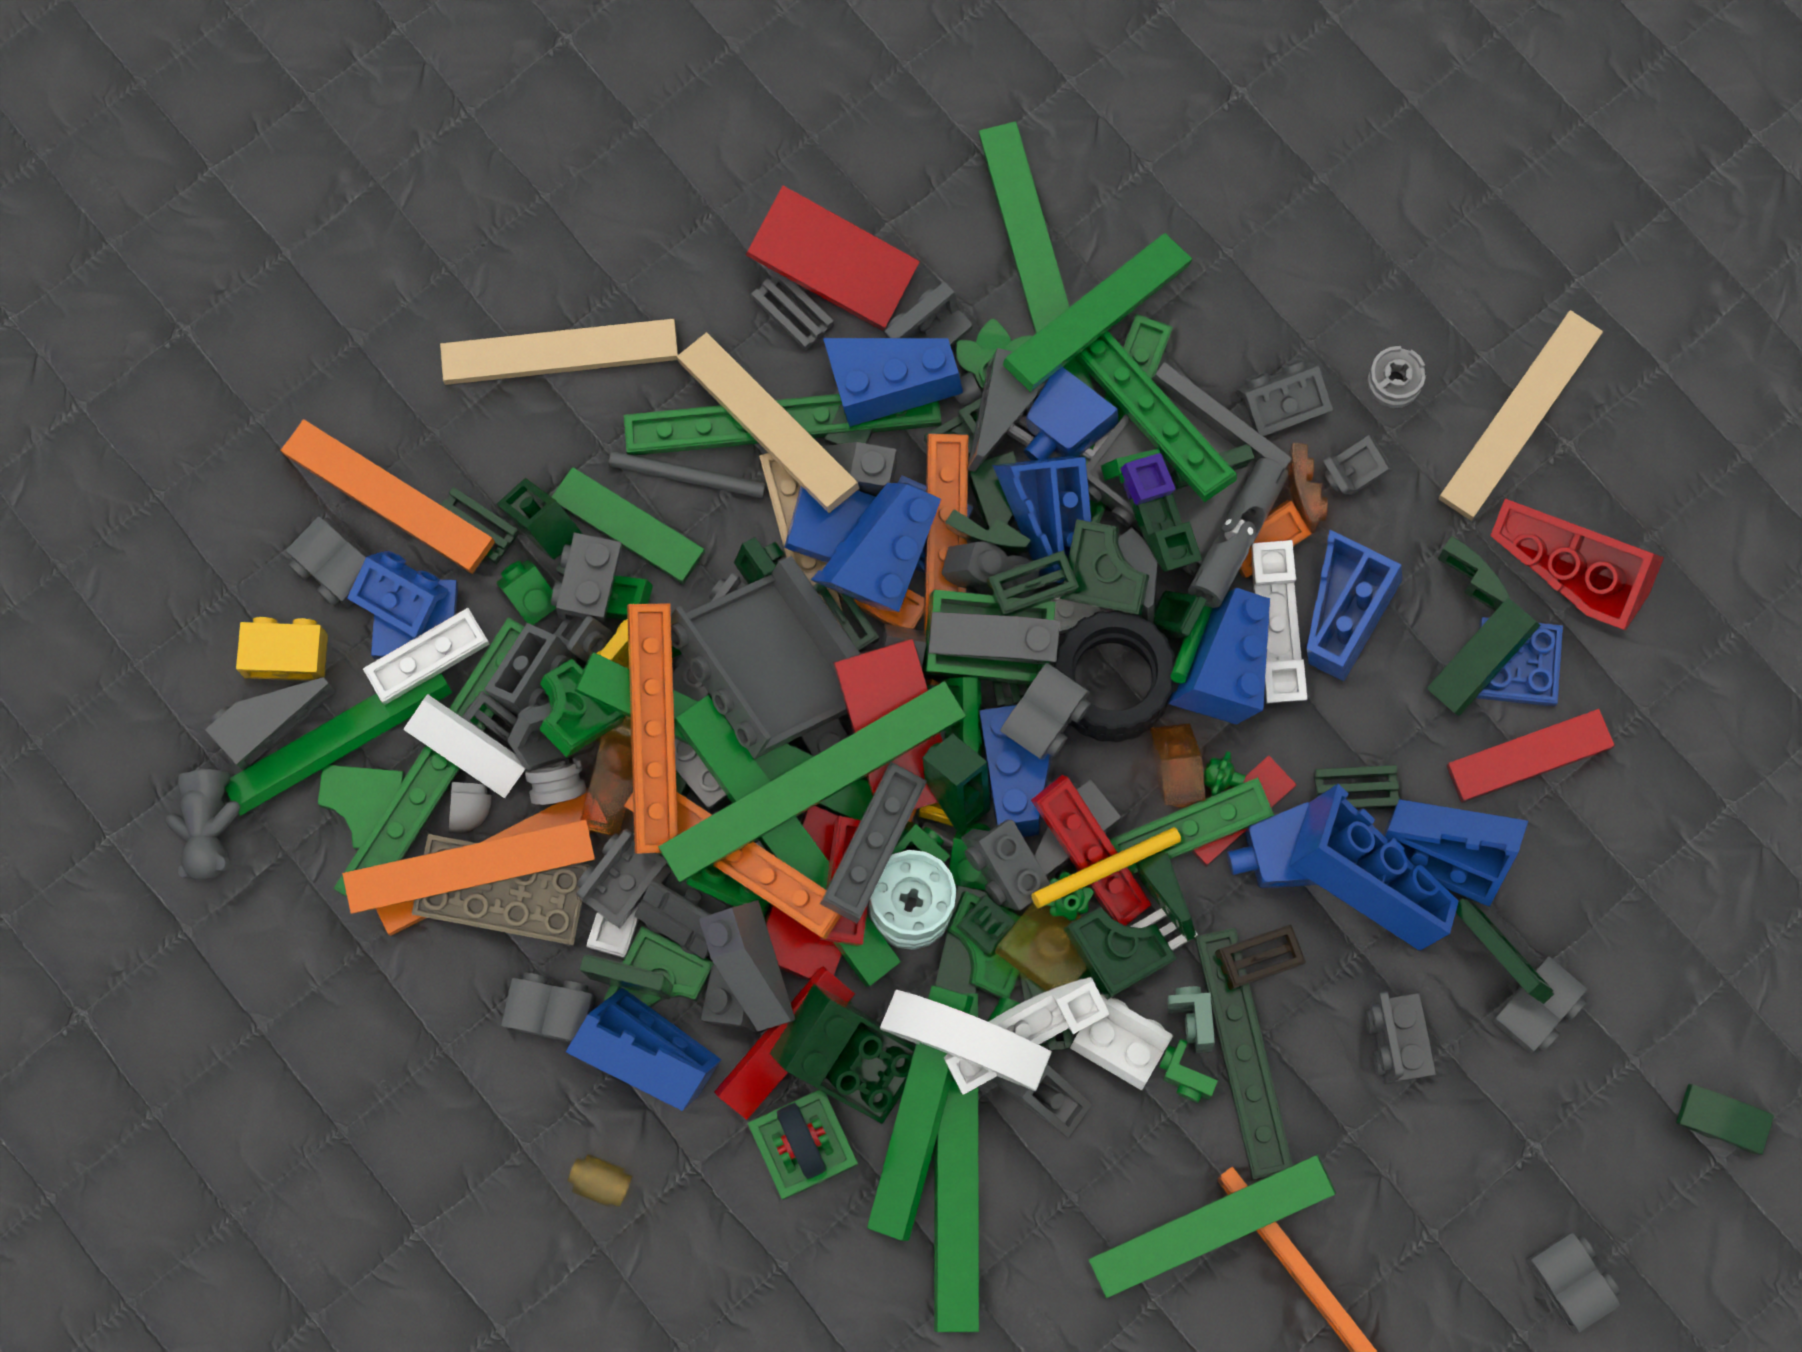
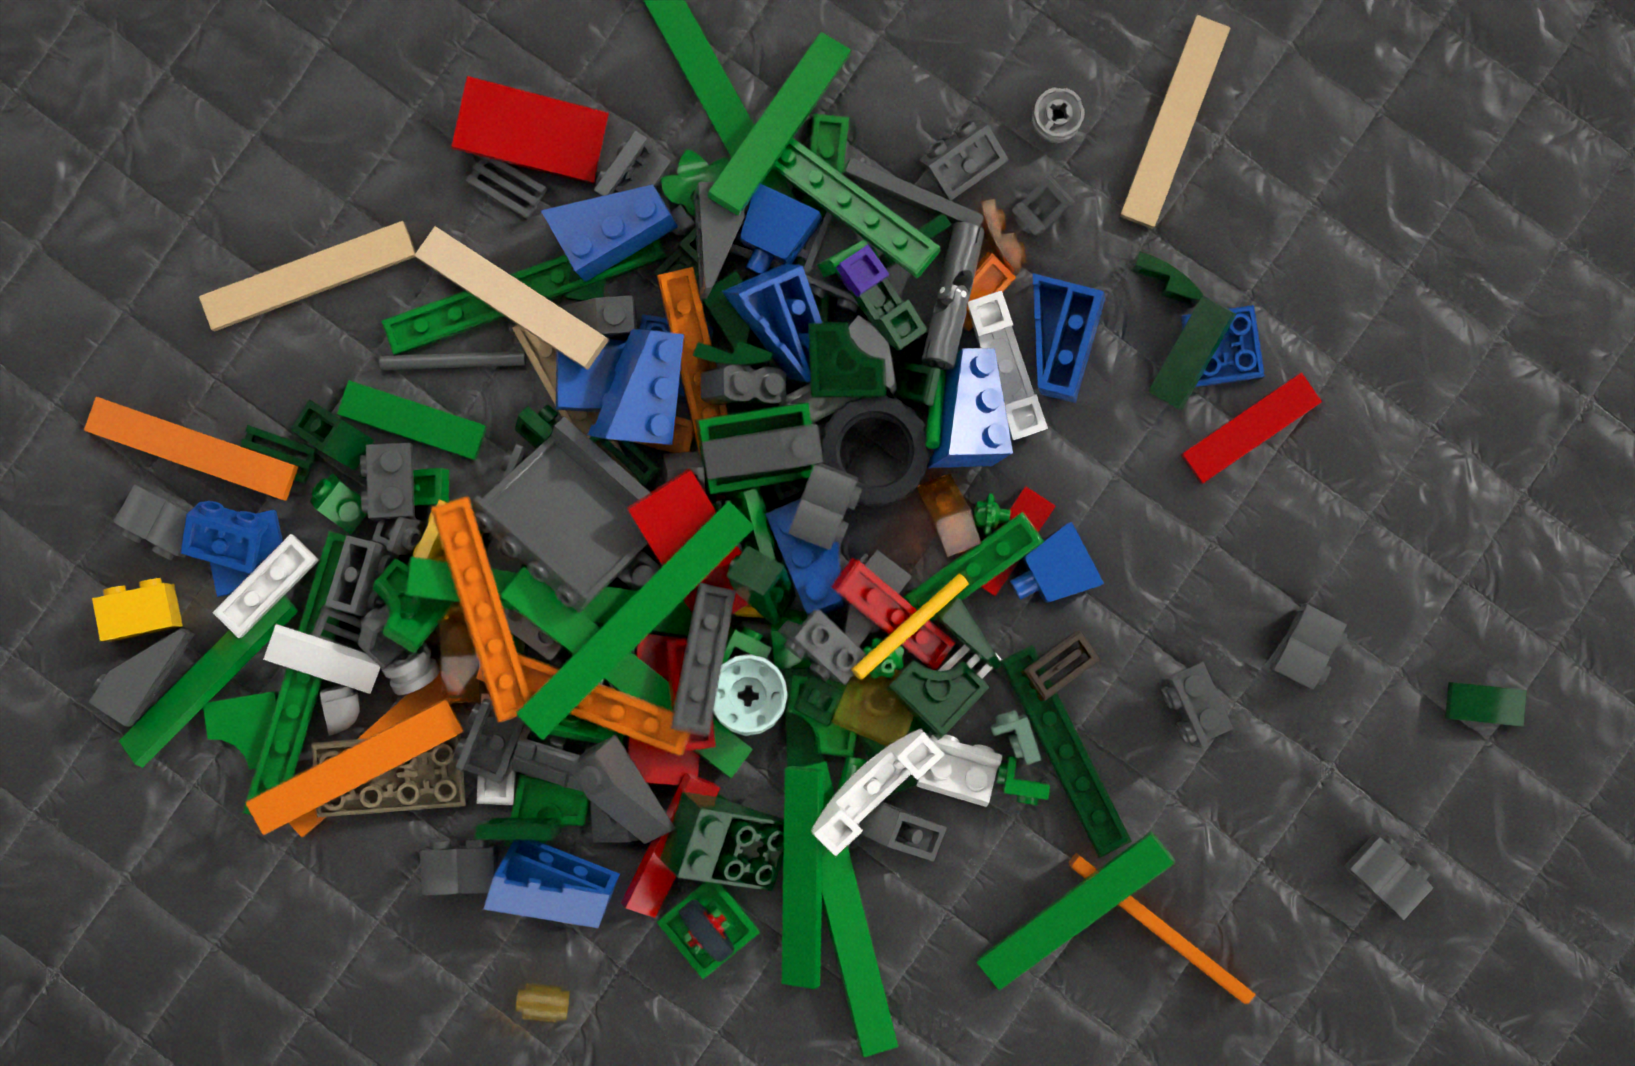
camera: 15 degrees left, 10 degrees up
(203, 822) = (110, 782): dark grey piece -> none
(966, 1038) = (826, 810): white slope -> none
(1001, 596) = (758, 411): dark green tile -> none
(1362, 772) = (1137, 485): dark green tile -> none
(1369, 872) = (1138, 572): blue wedge -> none
(1458, 846) = (1204, 530): blue wedge -> none
(1504, 951) = (1268, 611): dark green tile -> none
(1588, 568) = (1264, 247): red wedge -> none

